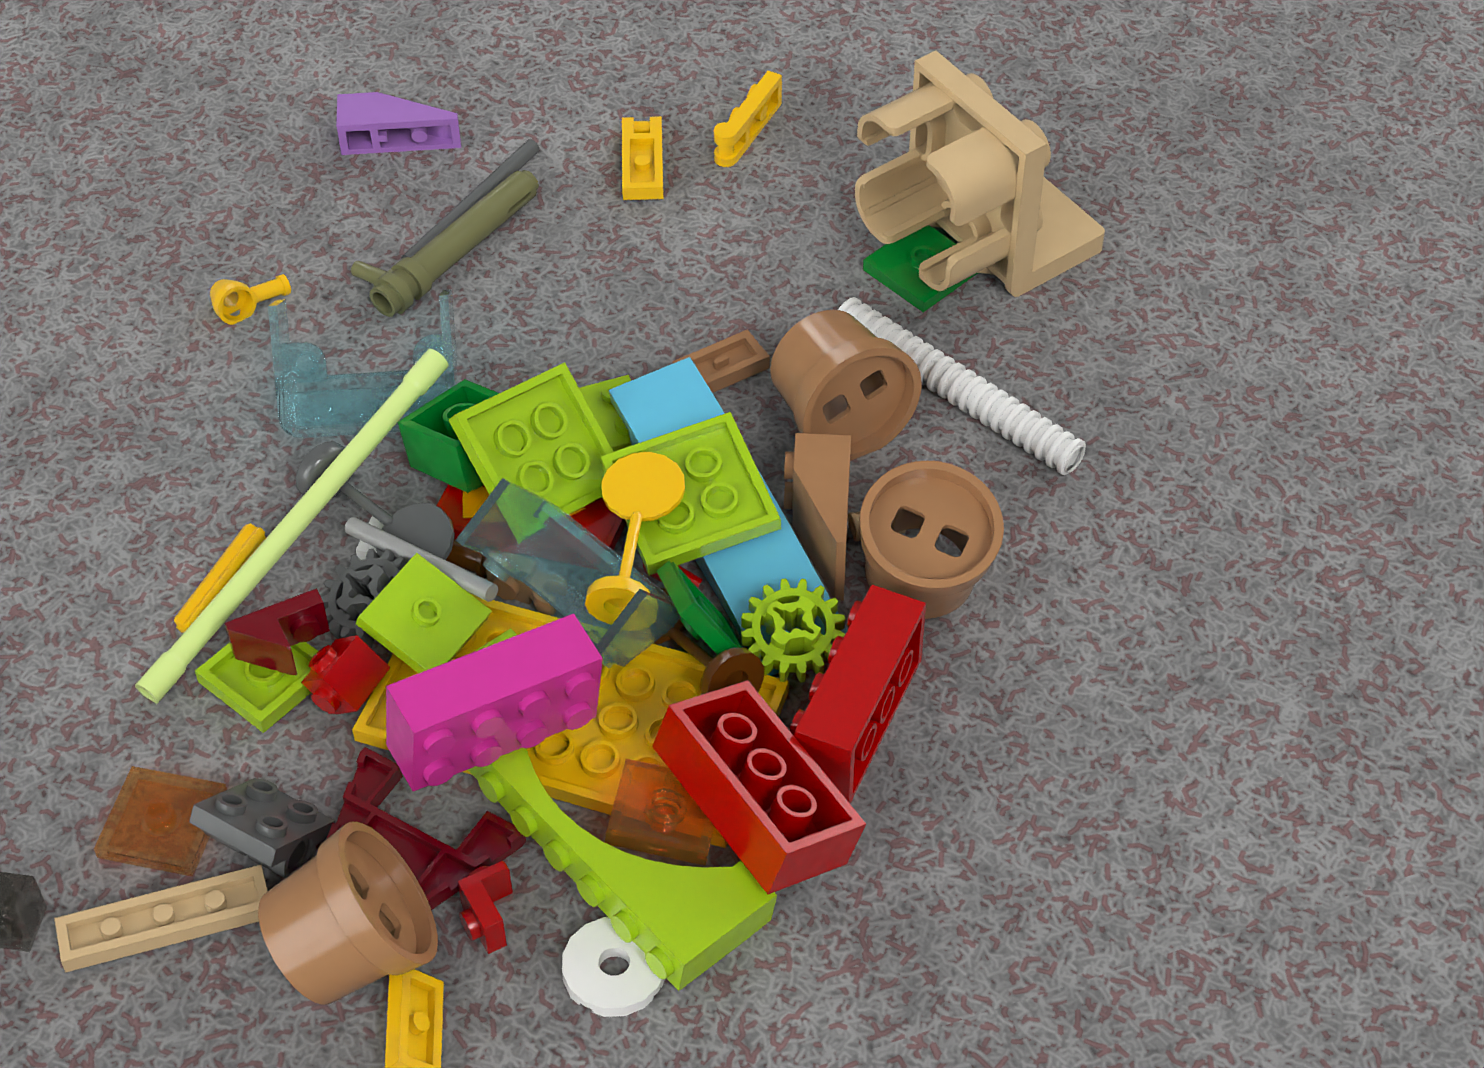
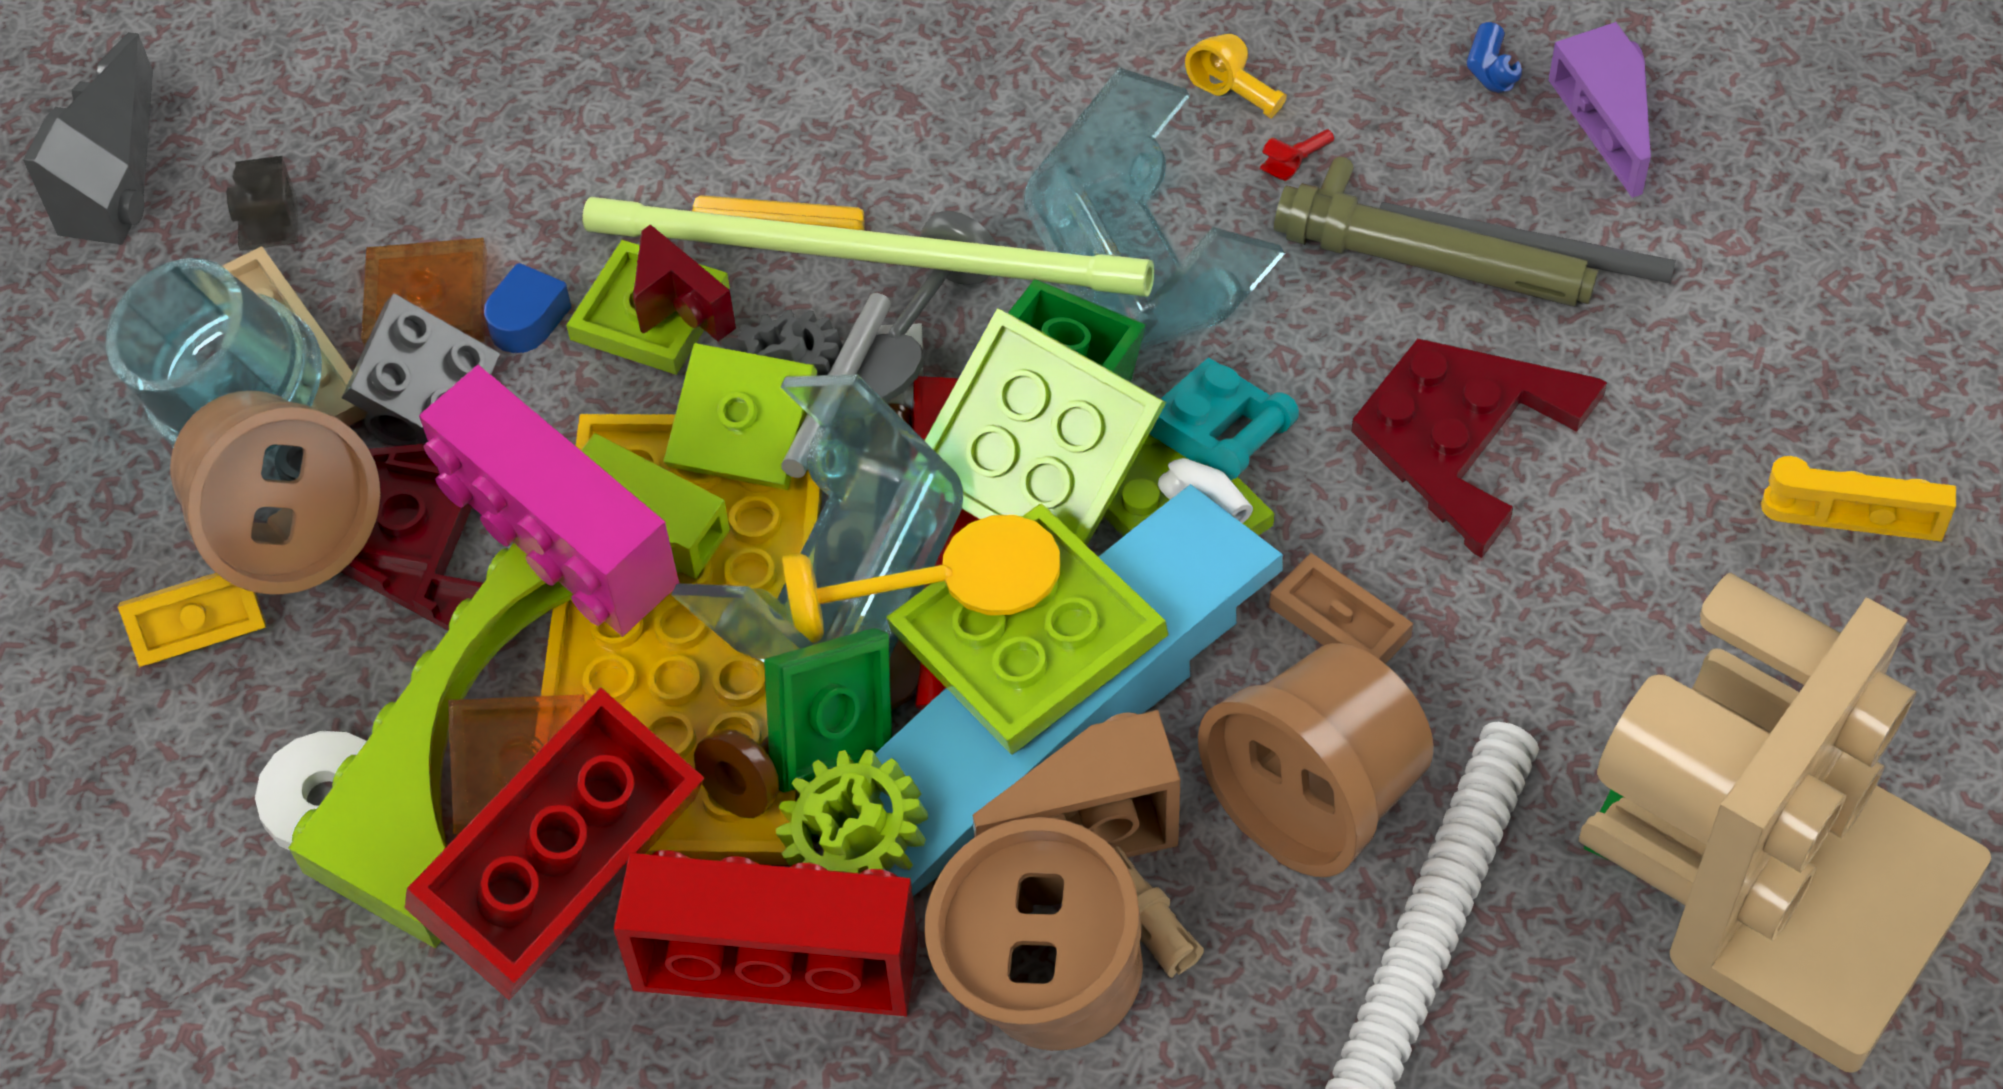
camera: 75 degrees right, 5 degrees up
(180, 910) = (183, 308): none -> clear light blue piece
(219, 752) = (525, 309): none -> blue piece
(311, 176) = (1486, 63): none -> blue arm
(332, 294) = (1286, 159): none -> red hand
(344, 675) = (643, 374): red brick -> none
(480, 914) = (362, 624): red bracket -> none
(545, 355) = (1208, 405): none -> teal plate
(591, 283) = (1445, 409): none -> dark red wing
(599, 390) = (1208, 481): none -> white arm
(642, 159) = (1710, 399): yellow plate -> none

